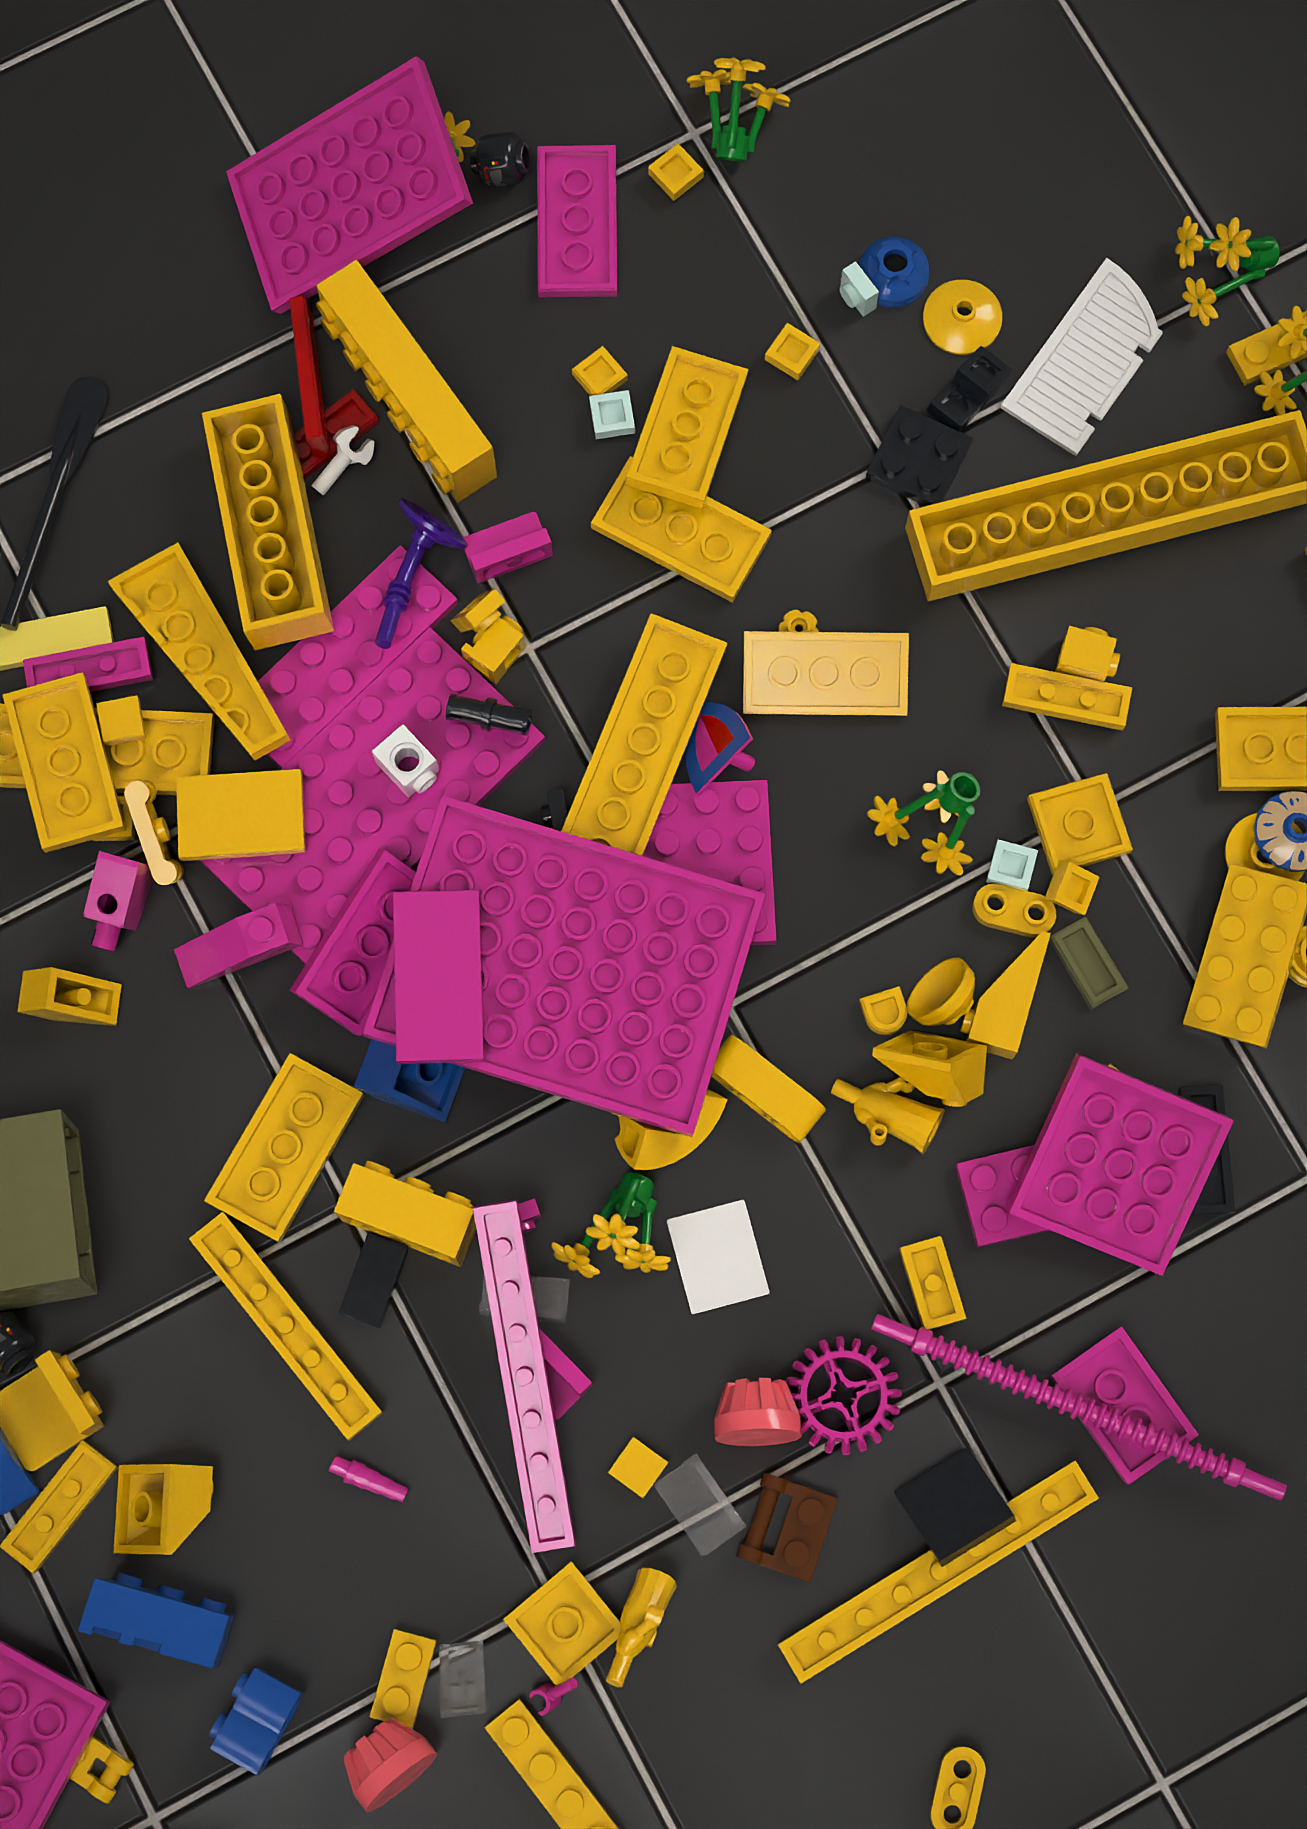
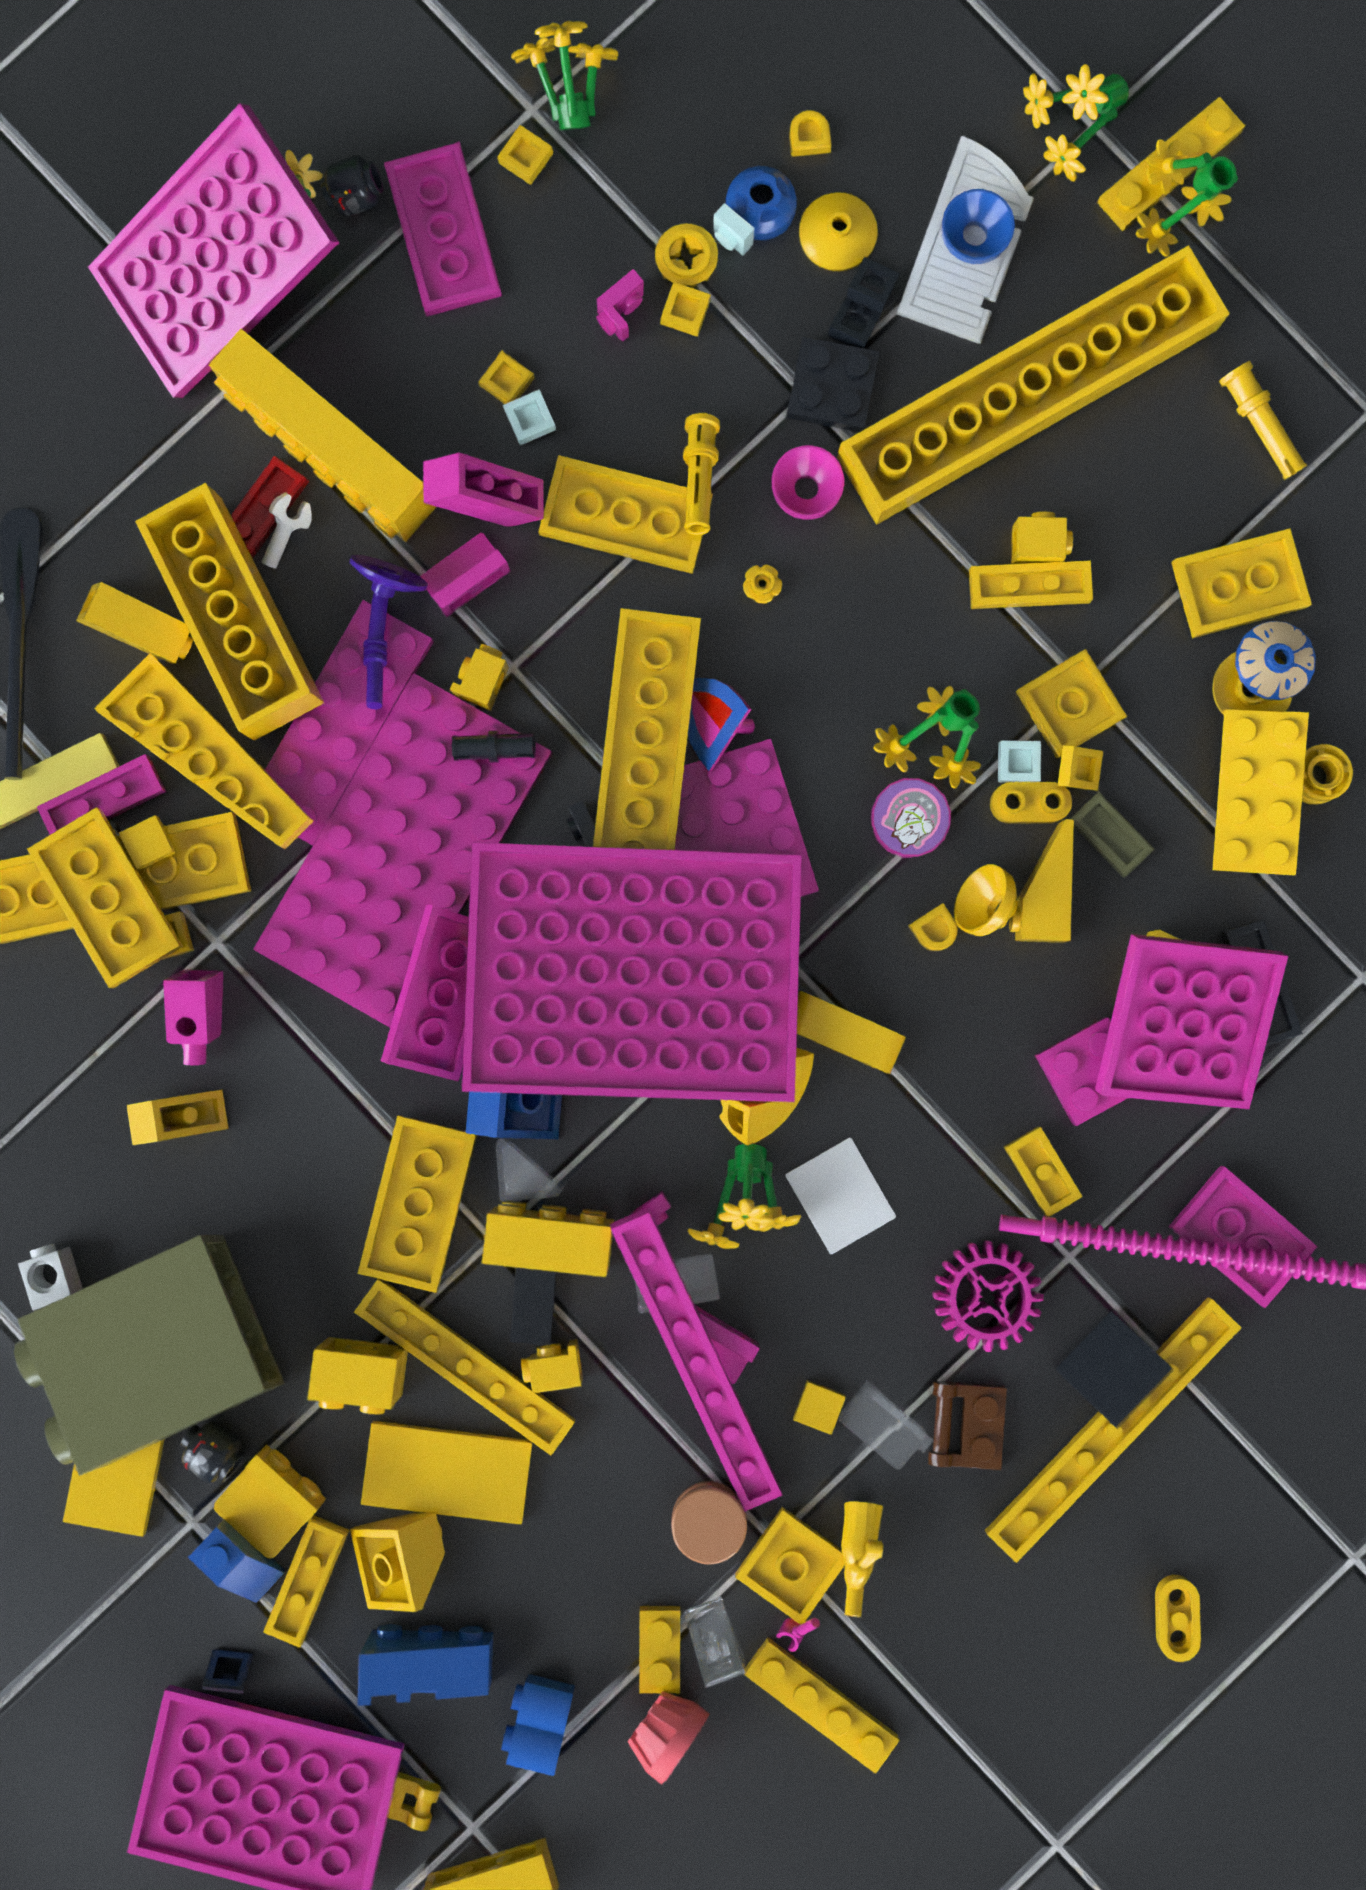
camera: 15 degrees left, 10 degrees up
(152, 832) = (208, 943): yellow plate -> none
(171, 510) = (135, 623): none -> yellow slope
(177, 1297) = (357, 1374): none -> yellow brick
(235, 1432) = (446, 1472): none -> yellow tile
(238, 944) = (321, 1027): dark pink slope -> none
(240, 815) = (286, 904): yellow tile -> none
(309, 376) = (228, 455): red tile -> none
(367, 1478) = (576, 1482): dark pink animal -> none
(375, 1350) = (553, 1367): none -> yellow brick
(396, 1146) = (521, 1176): none -> clear slope
(401, 745) = (416, 801): white brick -> none
(437, 977) = (517, 1019): dark pink tile -> none
(479, 612) = (457, 648): yellow plate -> none
(491, 1555) = (708, 1522): none -> nougat head
(547, 467) = (483, 490): none -> dark pink brick
(686, 427) = (605, 412): yellow plate -> none
(728, 326) = (619, 299): none -> dark pink bracket
(757, 1414) = (916, 1335): coral piece -> none
(769, 492) = (700, 457): none -> yellow pin
(821, 293) = (698, 242): none -> yellow gear
(825, 673) = (799, 621): yellow tile -> none
(873, 525) = (813, 464): none -> dark pink piece
(888, 894) = (910, 817): none -> tile
(890, 1113) = (973, 1025): yellow piece -> none
(937, 1065) = (997, 970): yellow slope -> none
(957, 220) = (809, 134): none -> yellow tile
(1100, 327) = (983, 210): none -> blue piece

